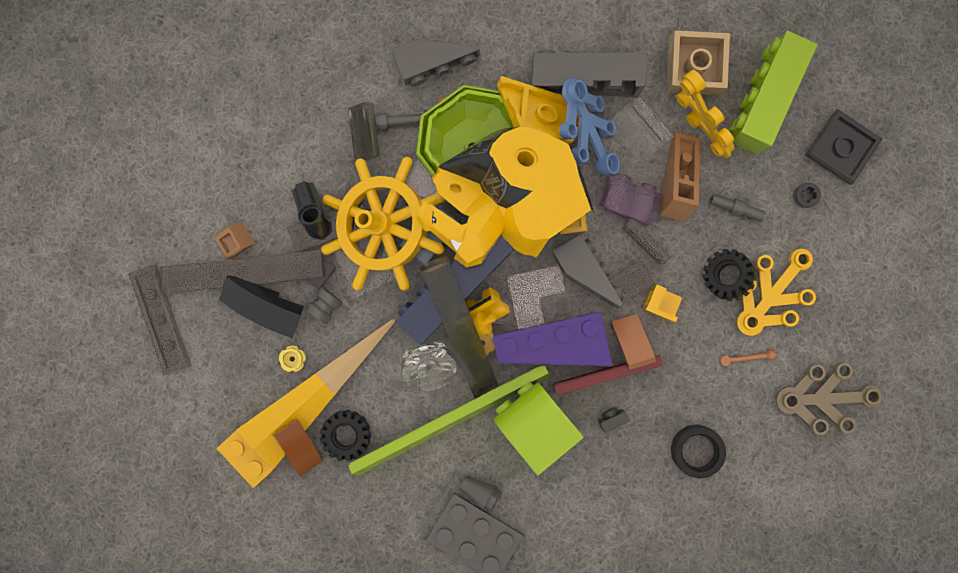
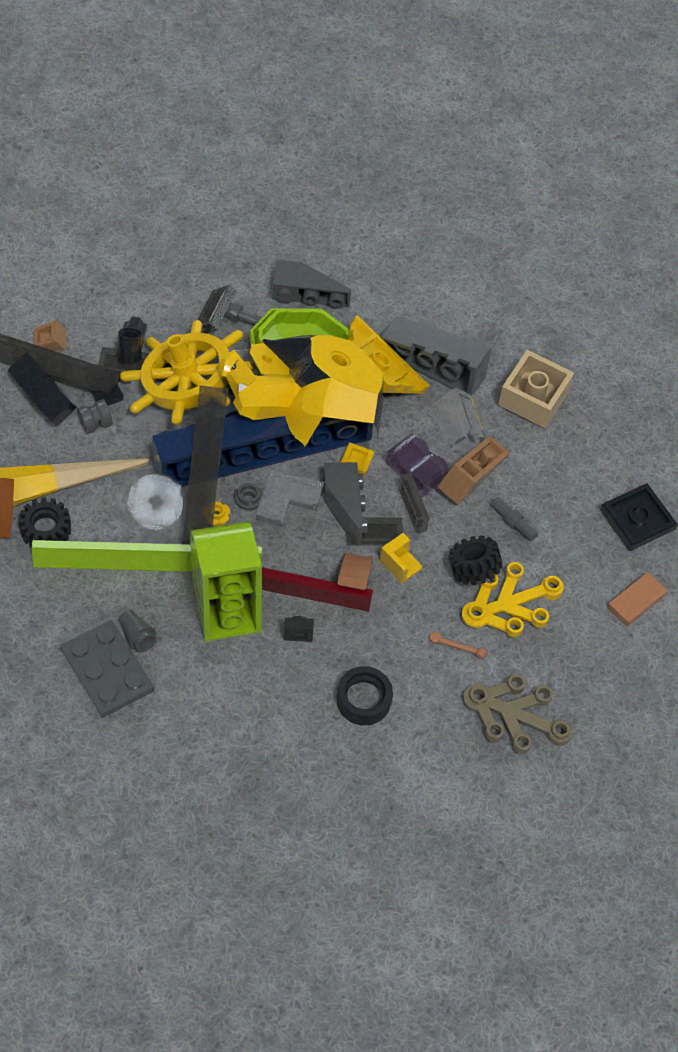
camera: 20 degrees right, 30 degrees down
(288, 365) = (35, 439): light yellow plate -> none
(487, 310) = (236, 480): yellow hips -> none
(561, 342) = (287, 539): dark purple wedge -> none
(576, 96) = (412, 355): medium blue plant -> none
(707, 120) = (520, 413): yellow plant -> none
(771, 92) = (589, 436): lime brick -> none
(811, 202) = (582, 532): black bush -> none
(877, 231) = (637, 599): none -> nougat tile

